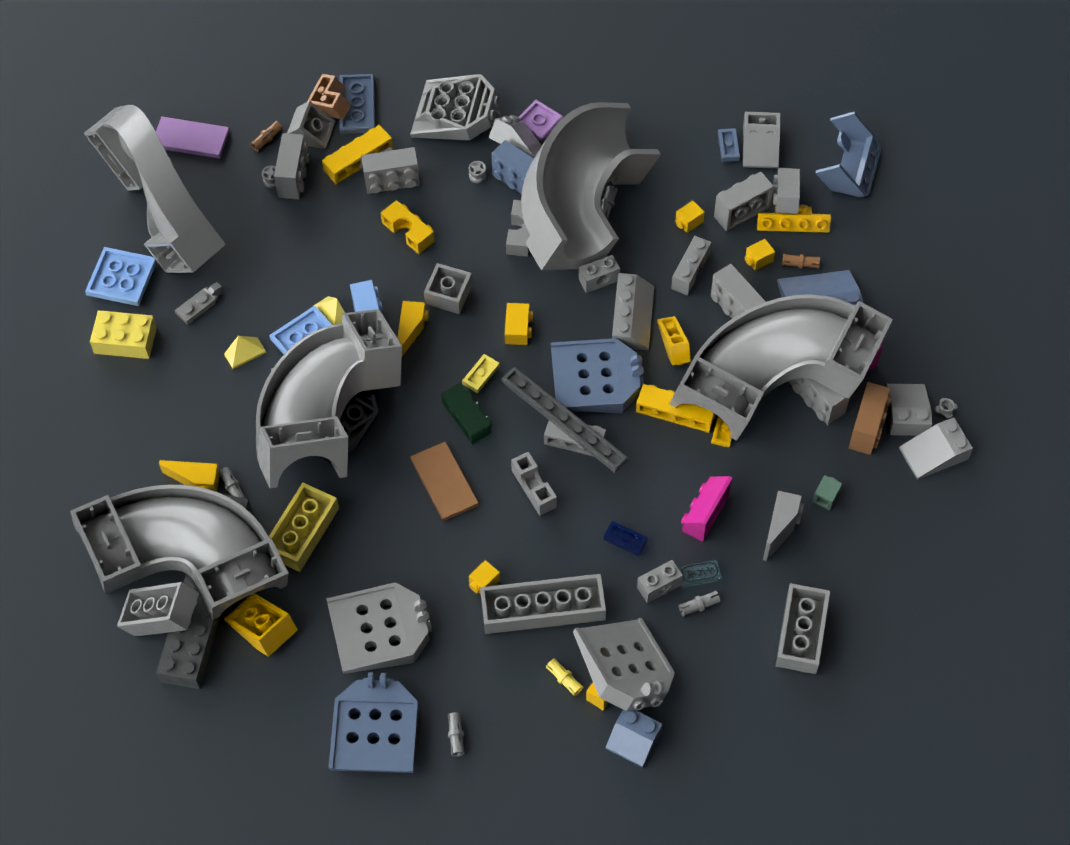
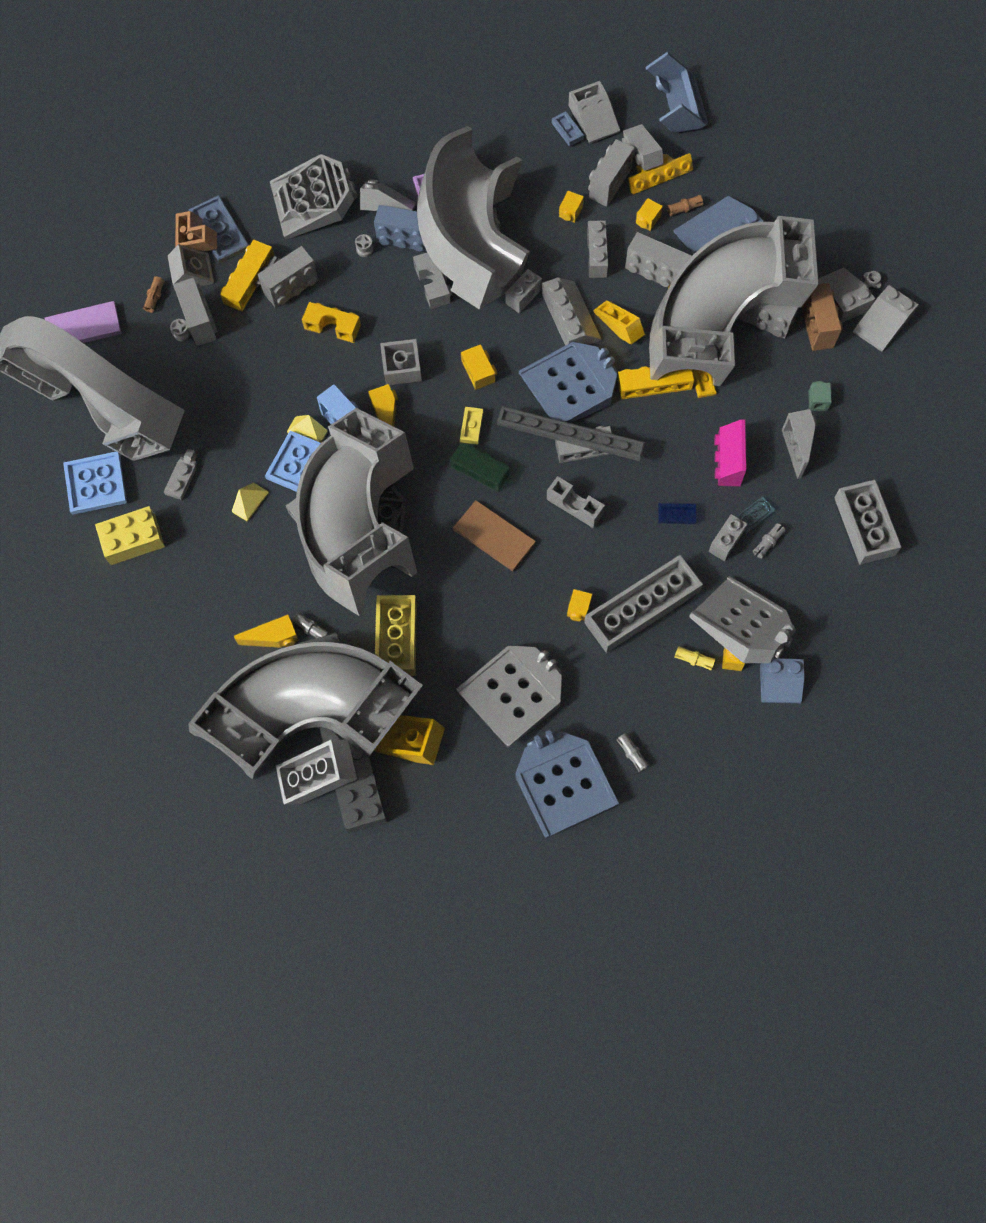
camera: 25 degrees left, 10 degrees up
(540, 119) = (392, 174): lavender tile -> none

